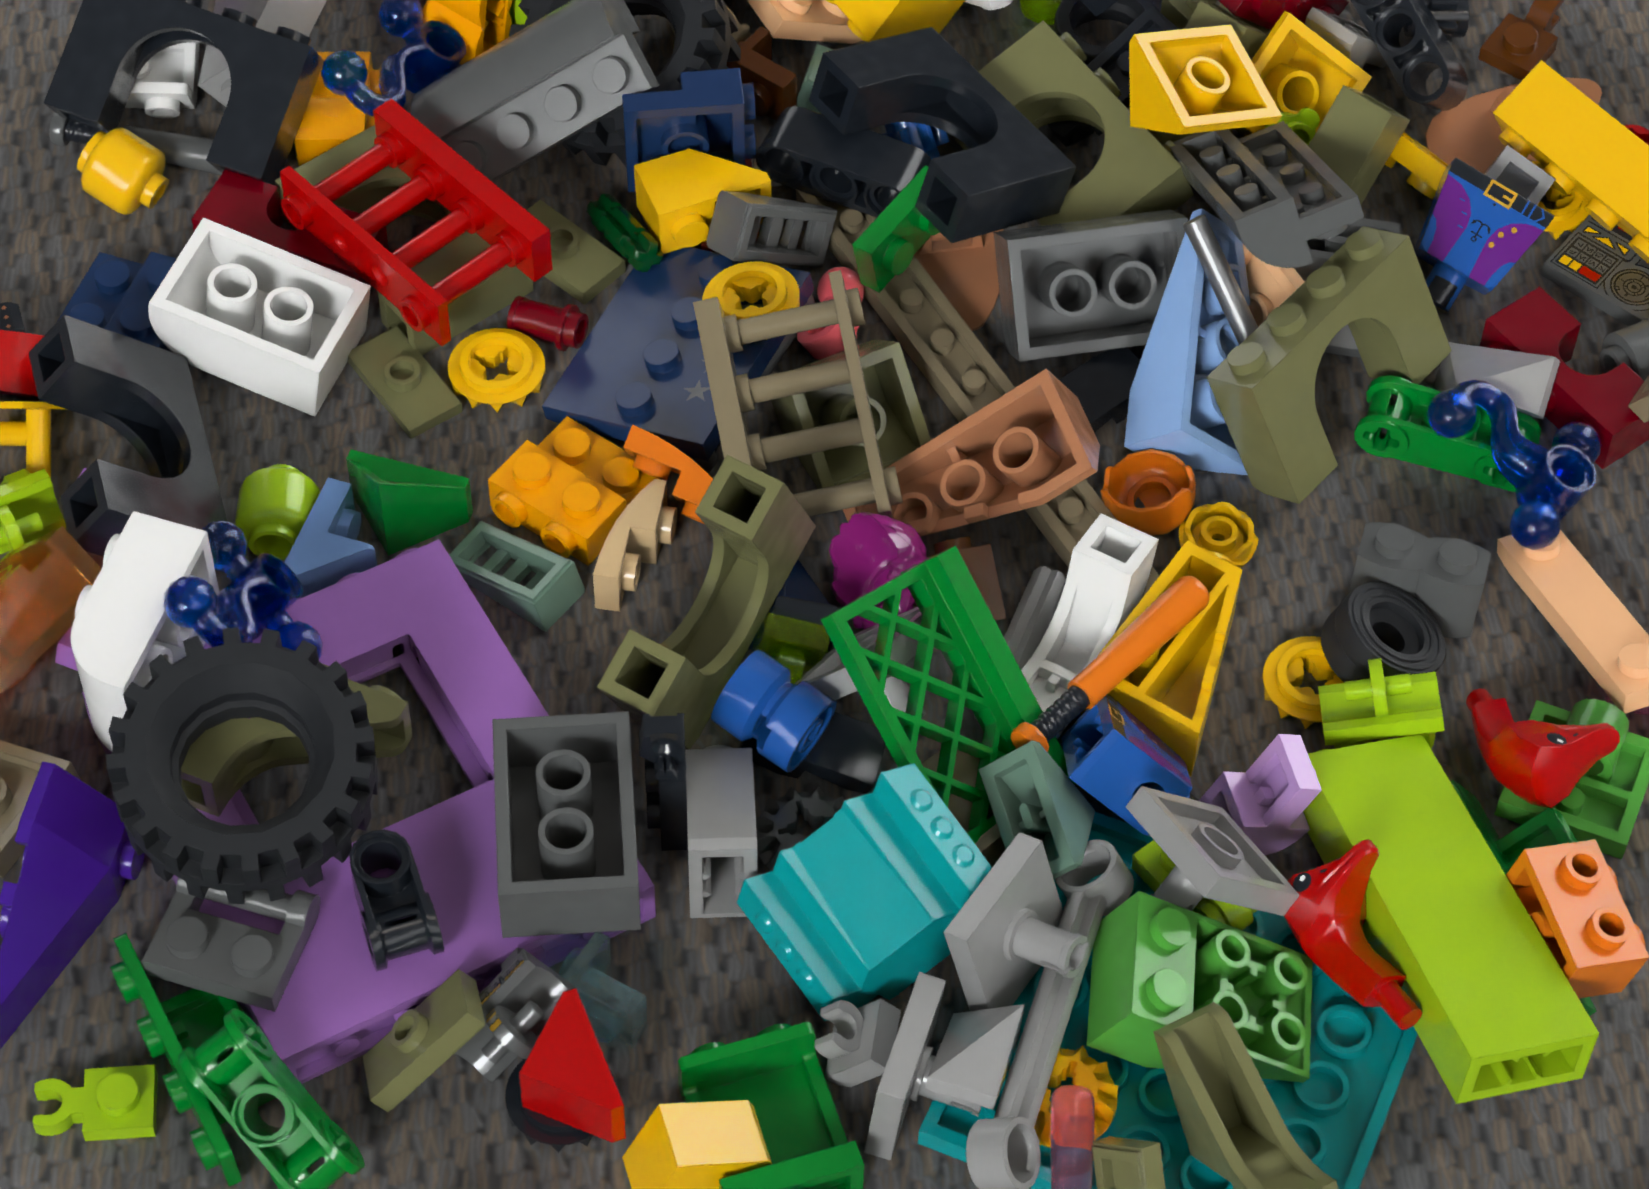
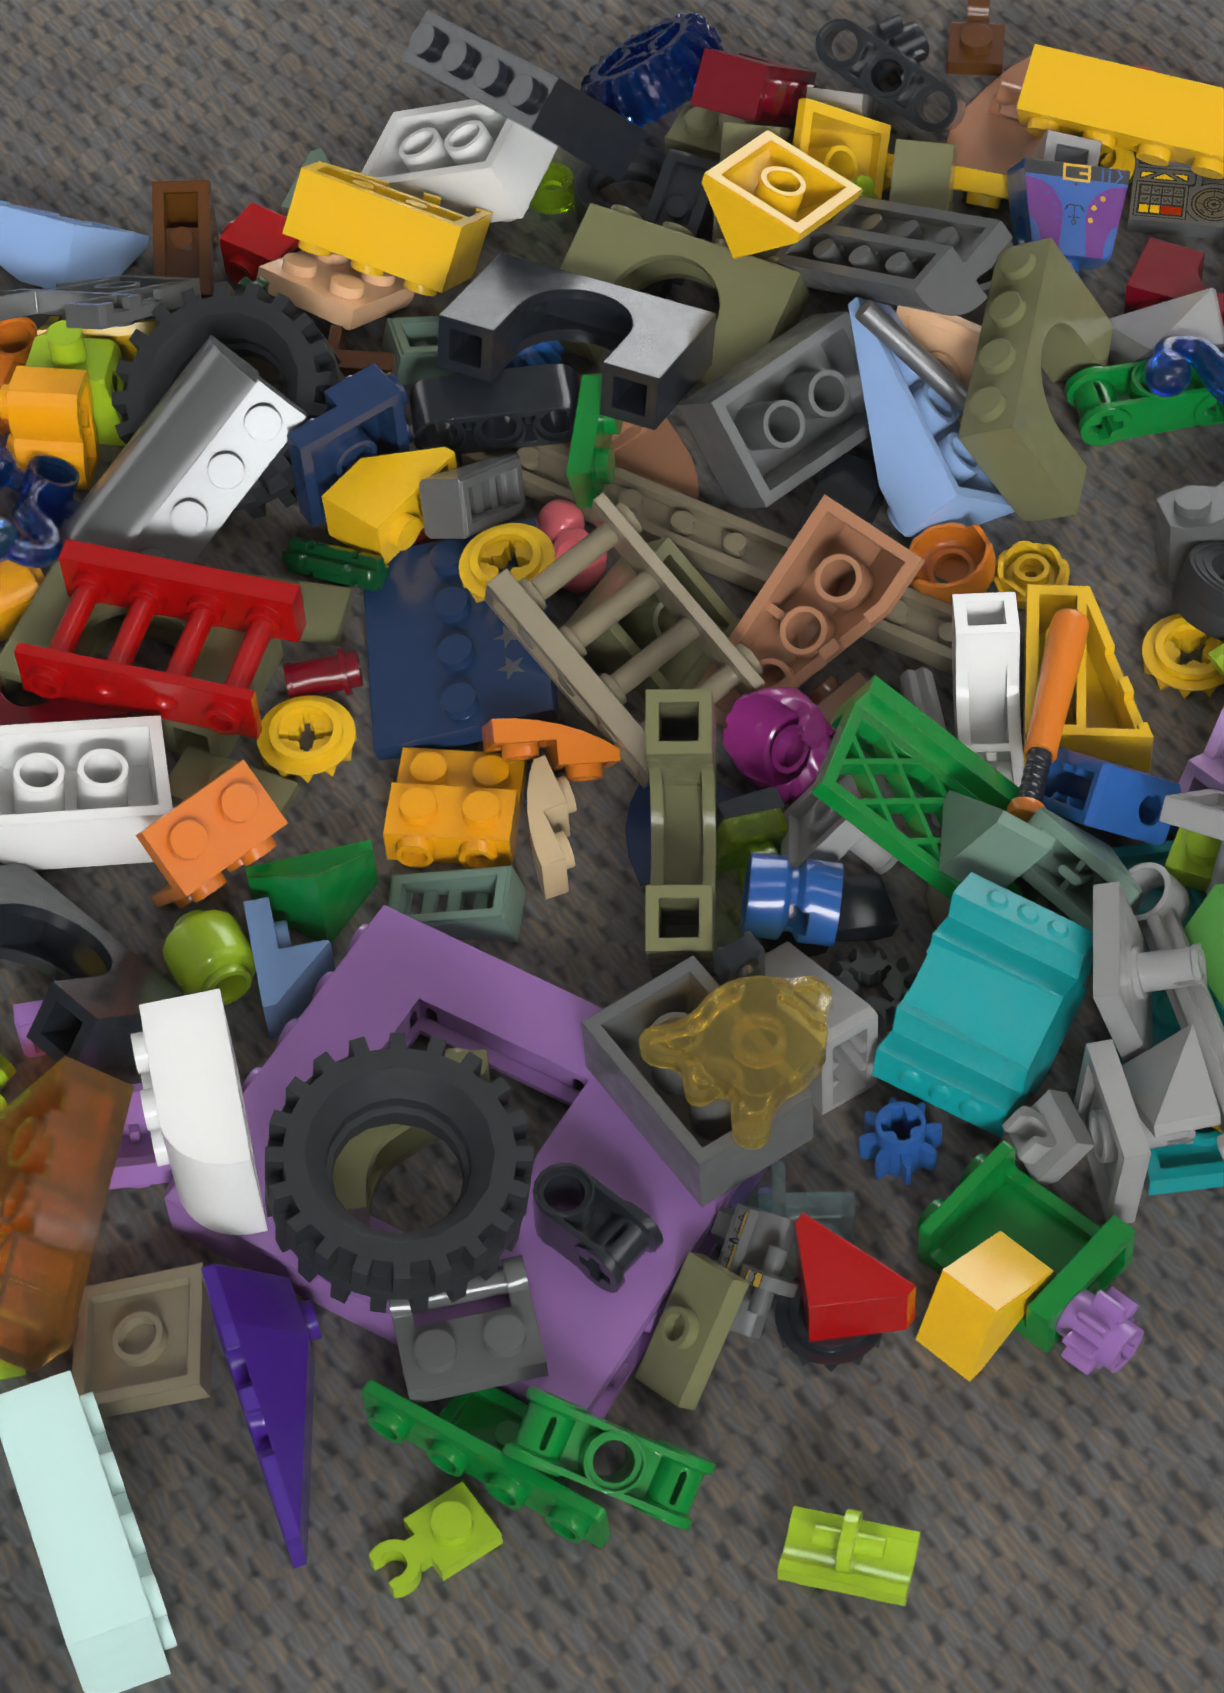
camera: 25 degrees left, 0 degrees up
(252, 601) = (275, 1033): clear blue piece -> none
(331, 404) = (209, 832): none -> orange bracket
(609, 816) = (748, 1045): none -> clear yellow tile
(725, 988) = (900, 1156): none -> blue gear
(962, 747) = (987, 841): none -> sand green slope

